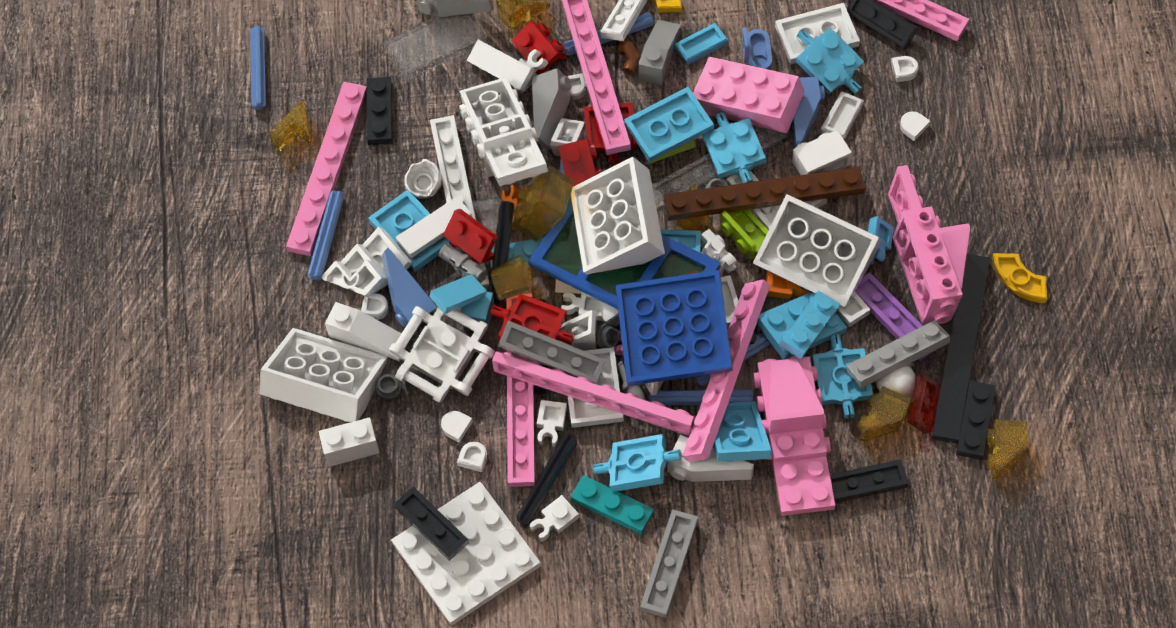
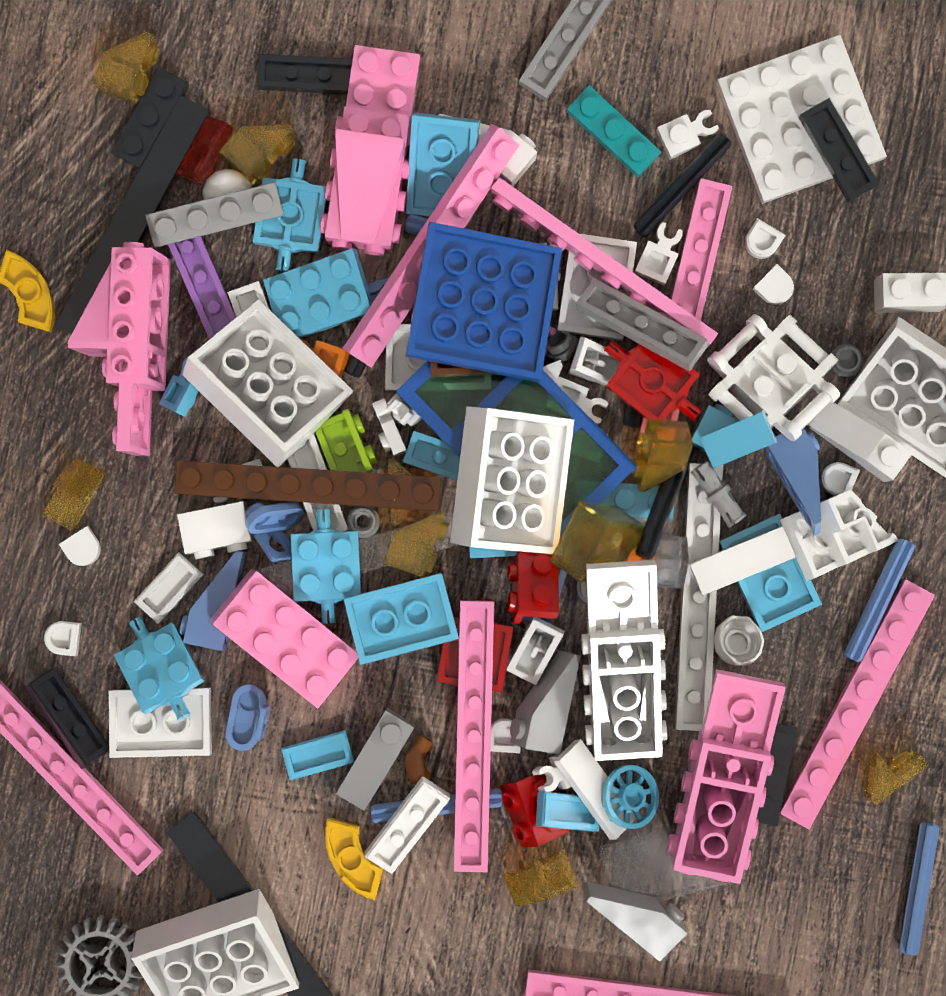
camera: 170 degrees left, 25 degrees up
(411, 80) = (726, 778): none -> bright pink wedge
(470, 236) = (703, 519): red bracket -> none
(474, 67) = (630, 797): none -> medium azure wheel
(519, 44) = (564, 812): none -> medium azure tile
(637, 463) = (571, 164): medium azure plate -> none
(674, 172) = (414, 545): none -> clear yellow slope
(790, 162) = (271, 521): none -> medium blue bracket
(809, 325) = (310, 279): medium azure plate -> none
(932, 156) = (73, 493): none -> clear yellow slope

